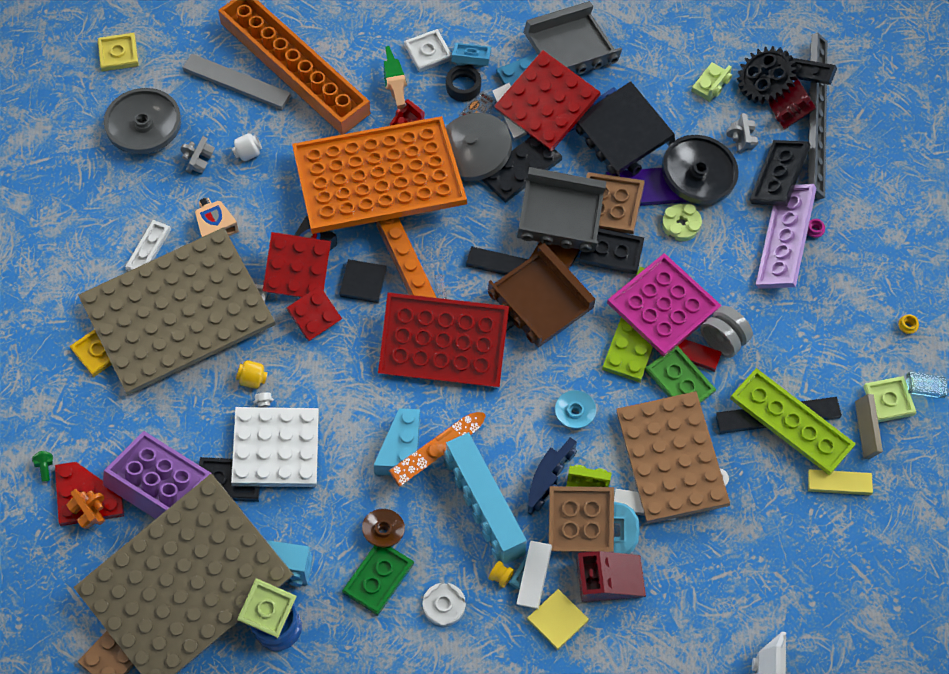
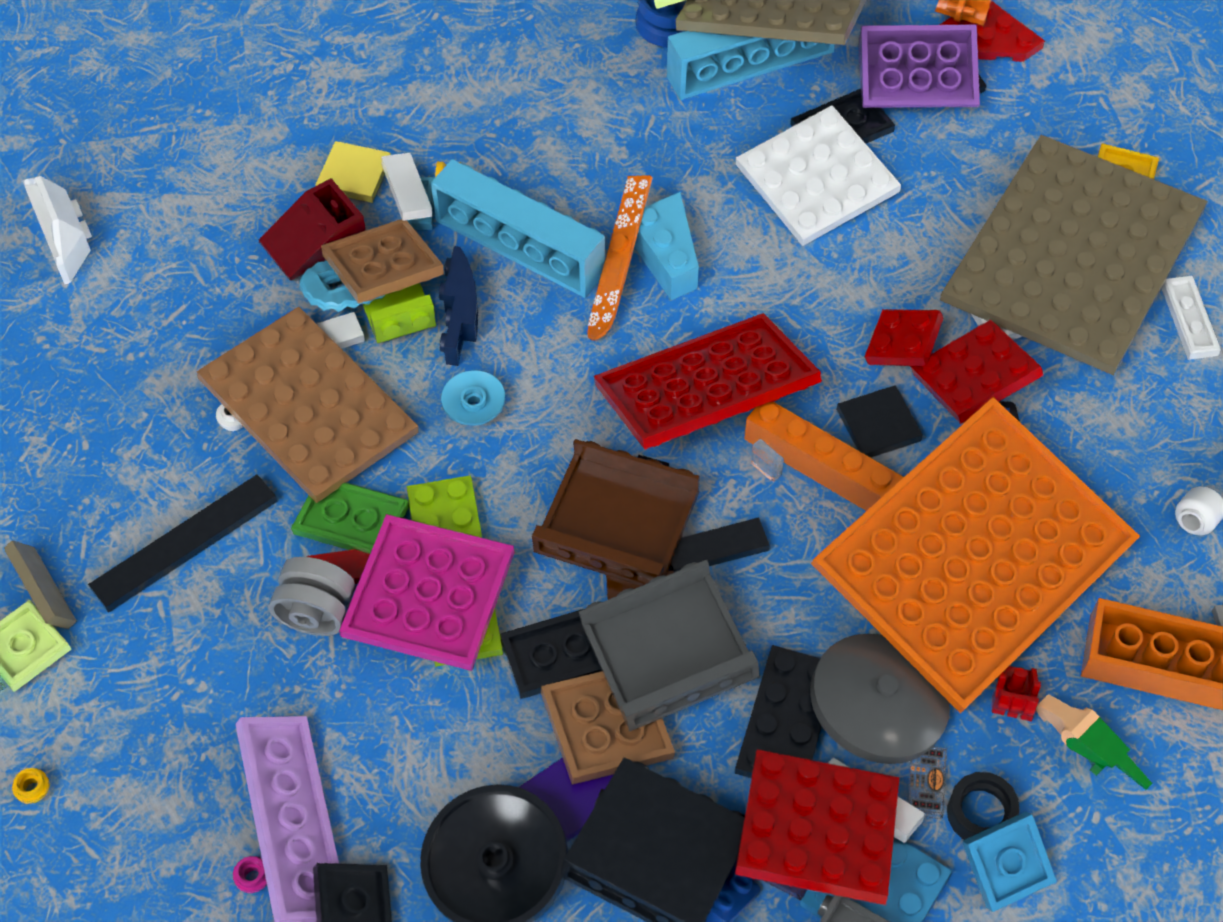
camera: 150 degrees right, 5 degrees down
(43, 460) = (1060, 35): green plate -> none
(214, 217) = (1142, 386): light nougat torso -> none
(251, 374) = (916, 230): yellow head -> none
(263, 399) = (878, 216): white plate -> none
(378, 578) = (592, 116): green tile -> none
(383, 520) = (617, 143): reddish brown dish -> none
(428, 50) = (1089, 846): white tile -> none
(444, 604) = (497, 126): white tile -> none
(685, 212) = (477, 744): yellowish green plate -> none
(793, 421) = (156, 527): lime plate -> none
(840, 482) = (56, 496): light yellow tile -> none

